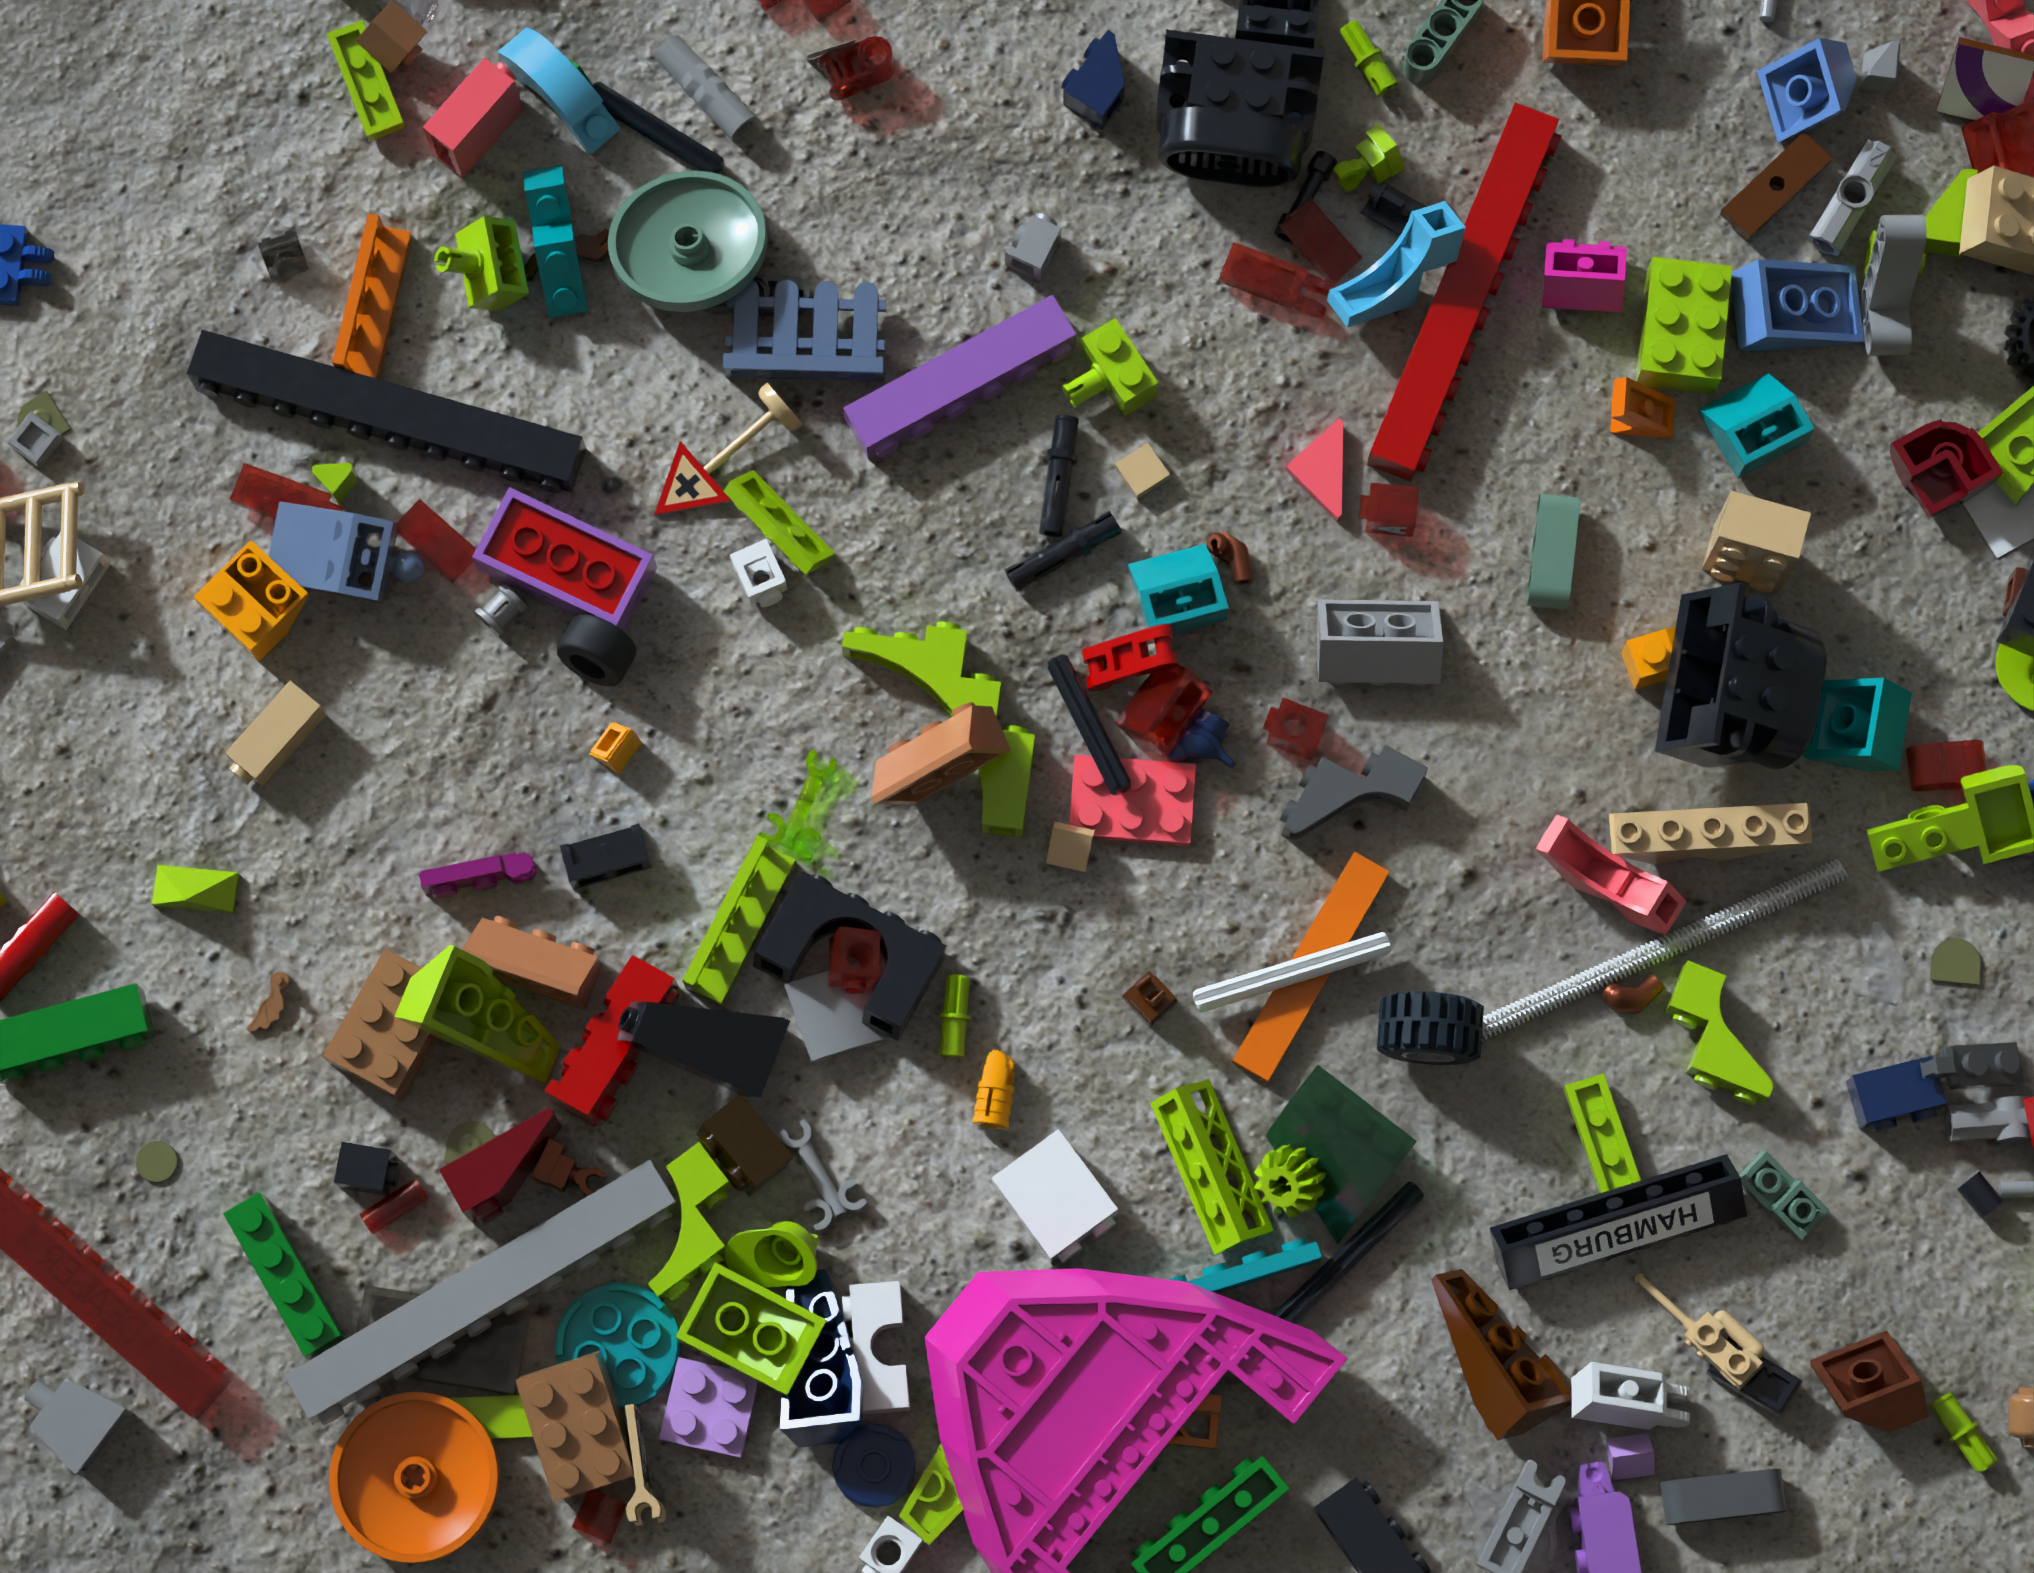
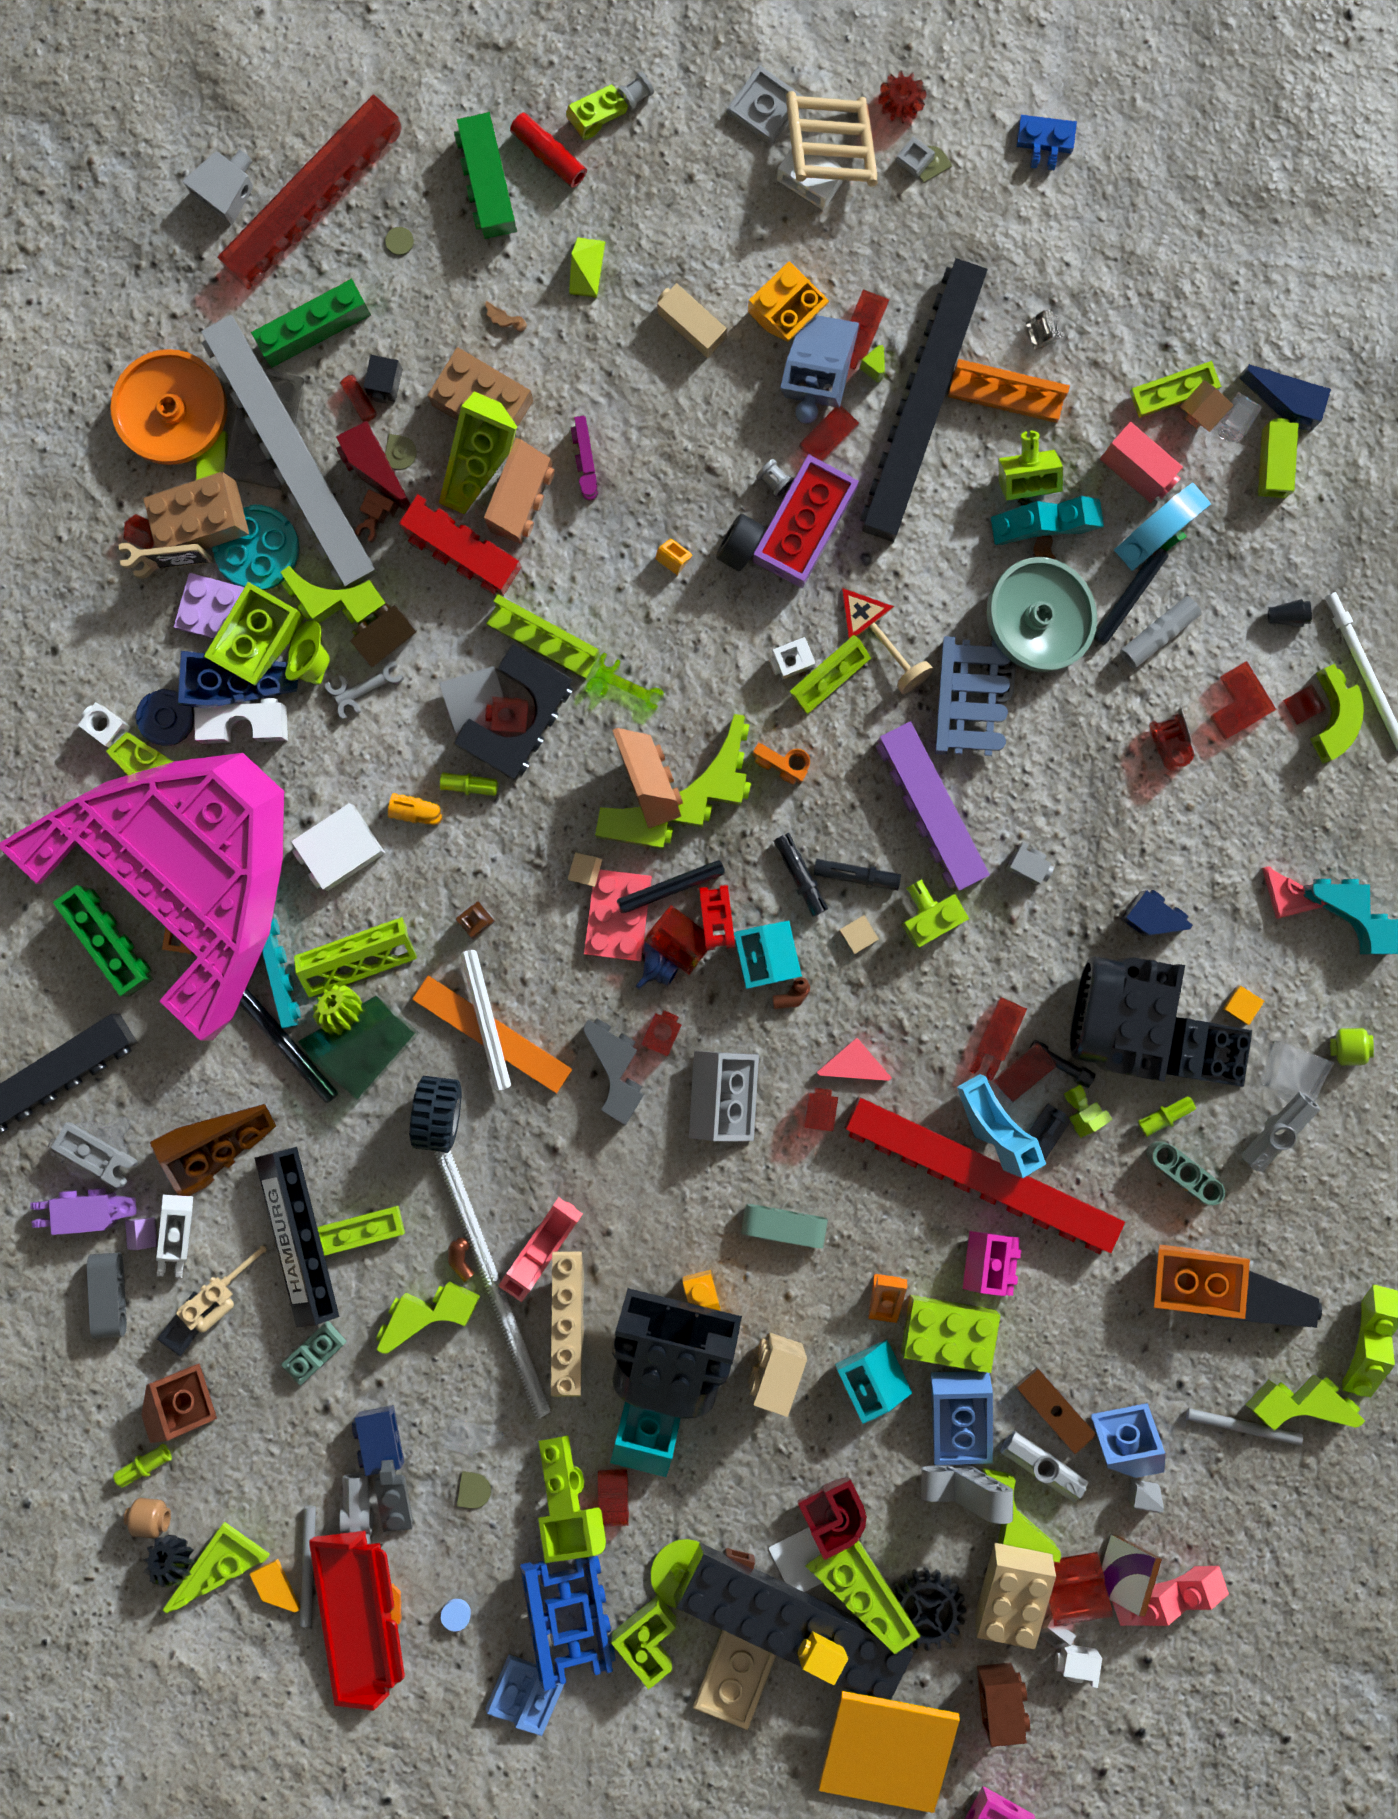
camera: 90 degrees right, 10 degrees up
(605, 857) = (595, 546): black hinge -> none
(711, 1043) = (453, 609): black slope -> none
(901, 599) = (768, 758): none -> orange plate
(1980, 1195) = (305, 1493): black hinge -> none

